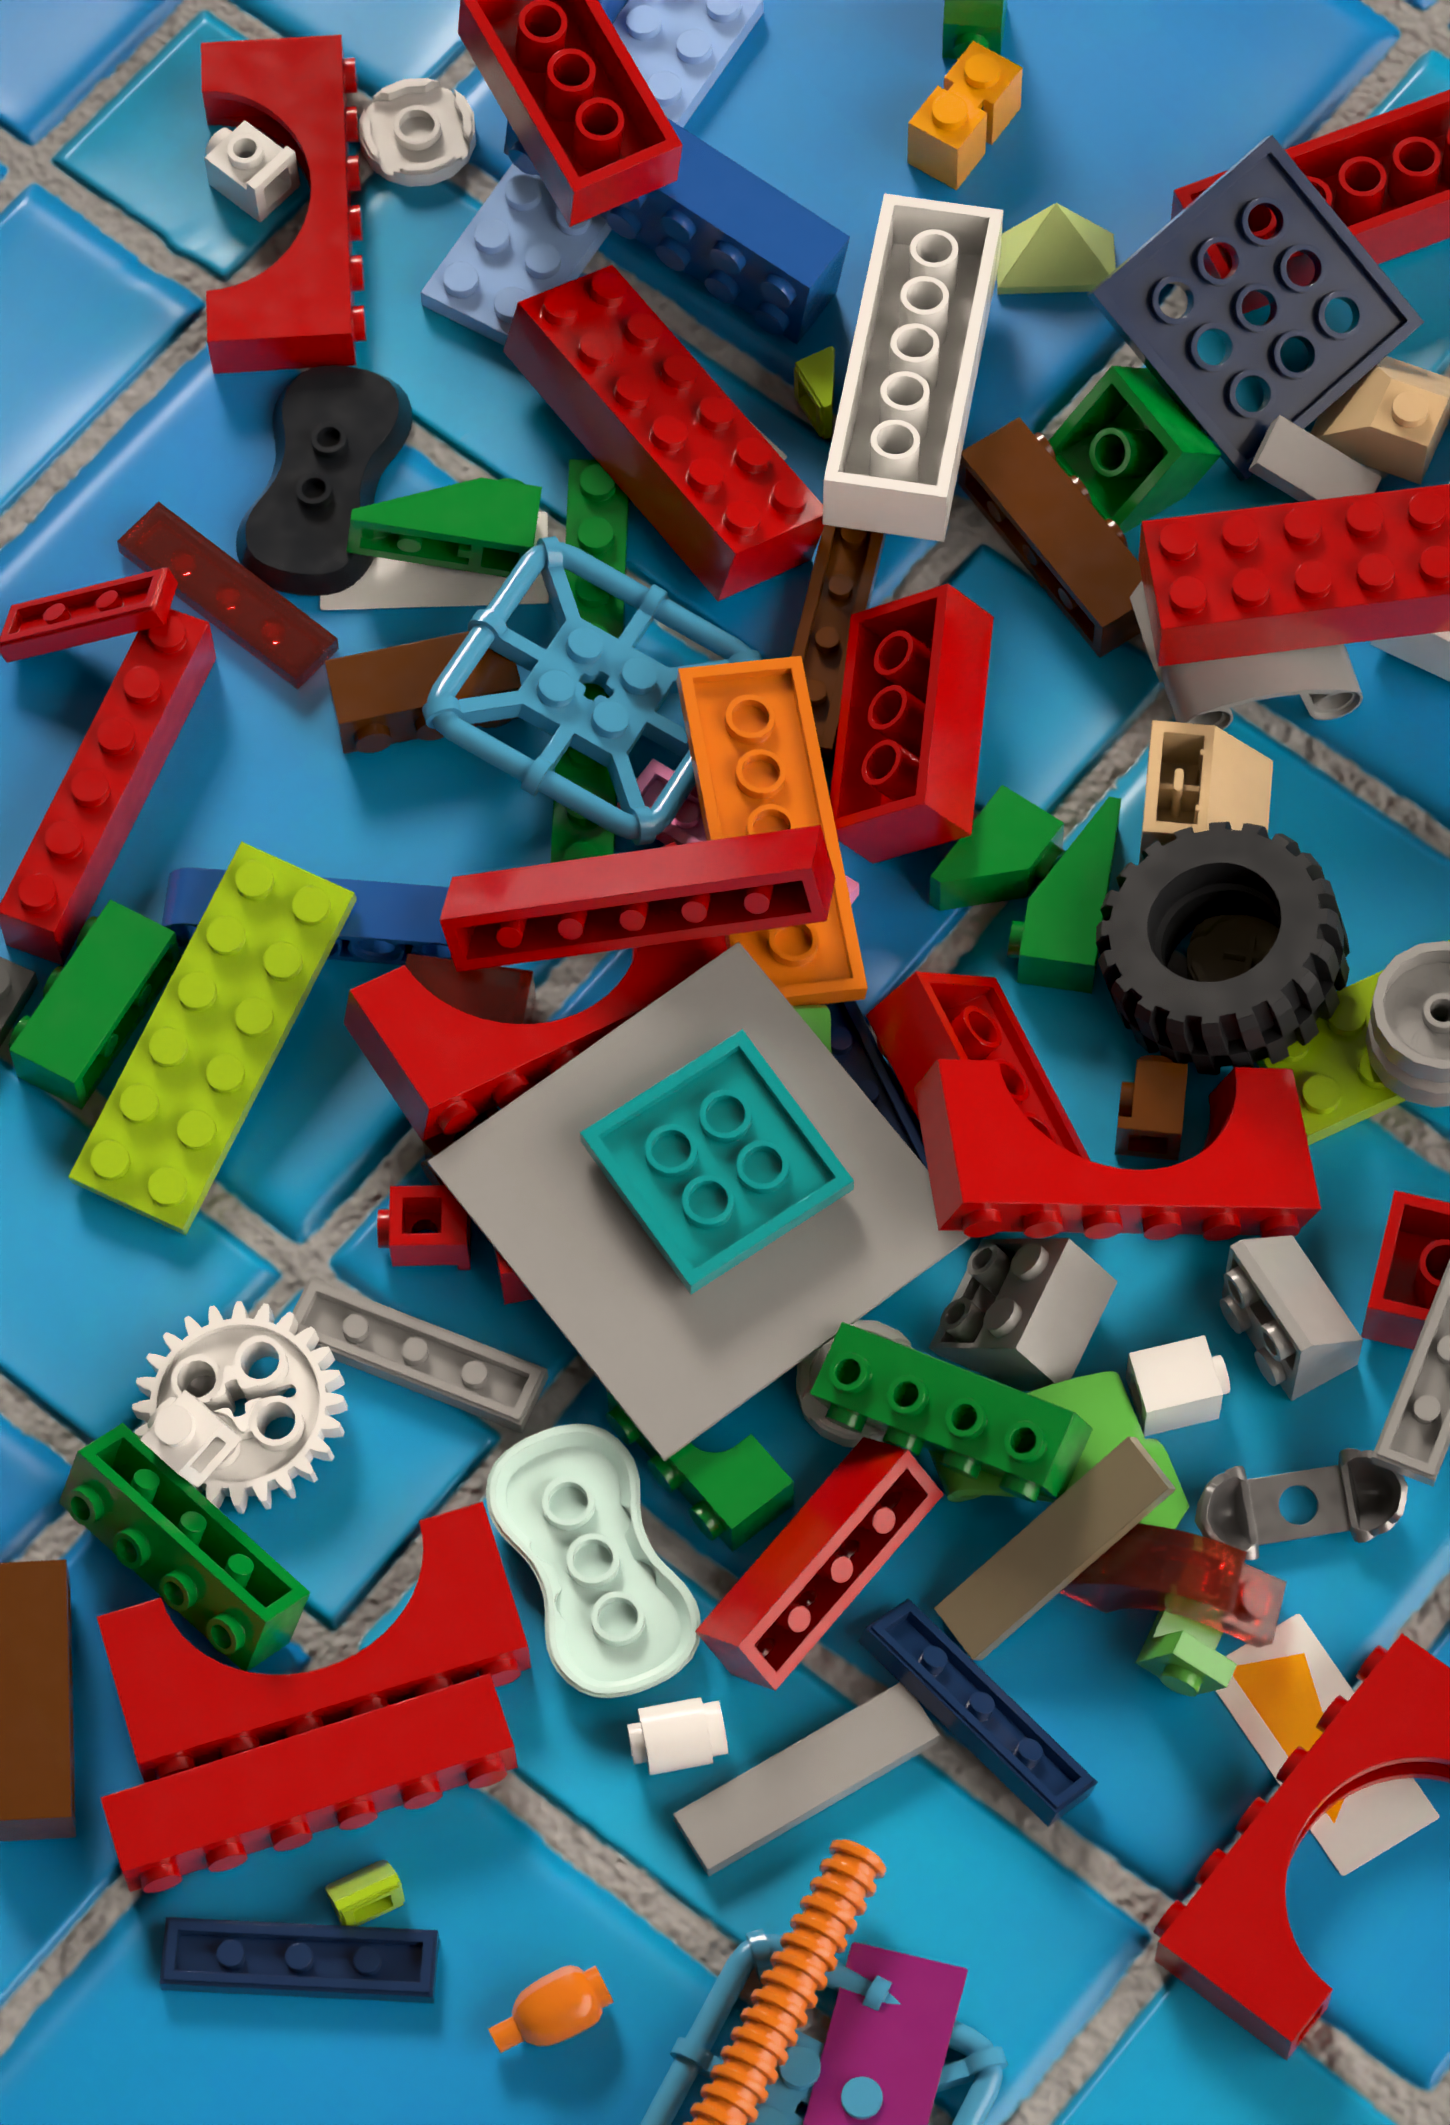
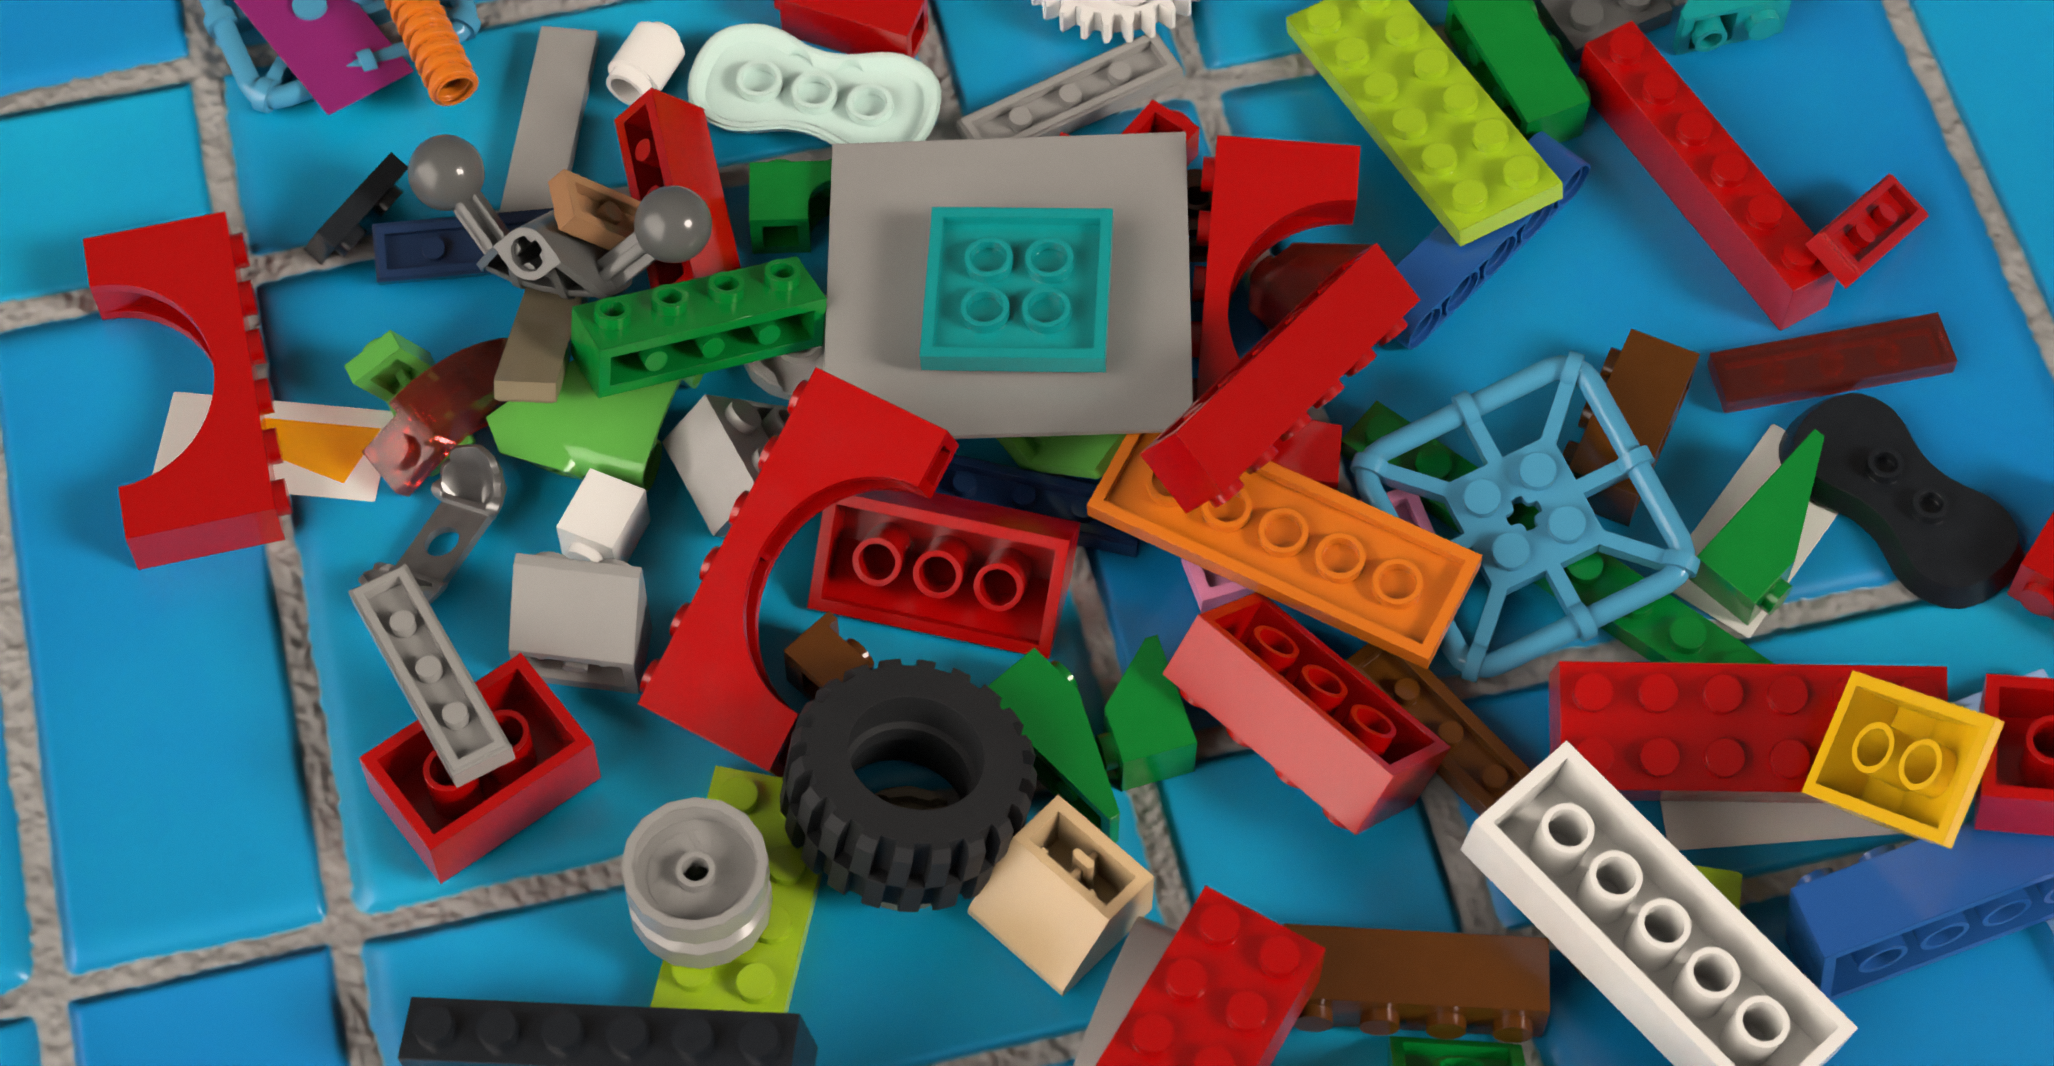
camera: 125 degrees right, 5 degrees down
(664, 233) = (1902, 759): none -> yellow slope
(916, 1559) = (591, 210): none -> medium nougat plate
(957, 1603) = (668, 227): none -> dark grey piece
(1044, 1855) = (343, 228): none -> black plate

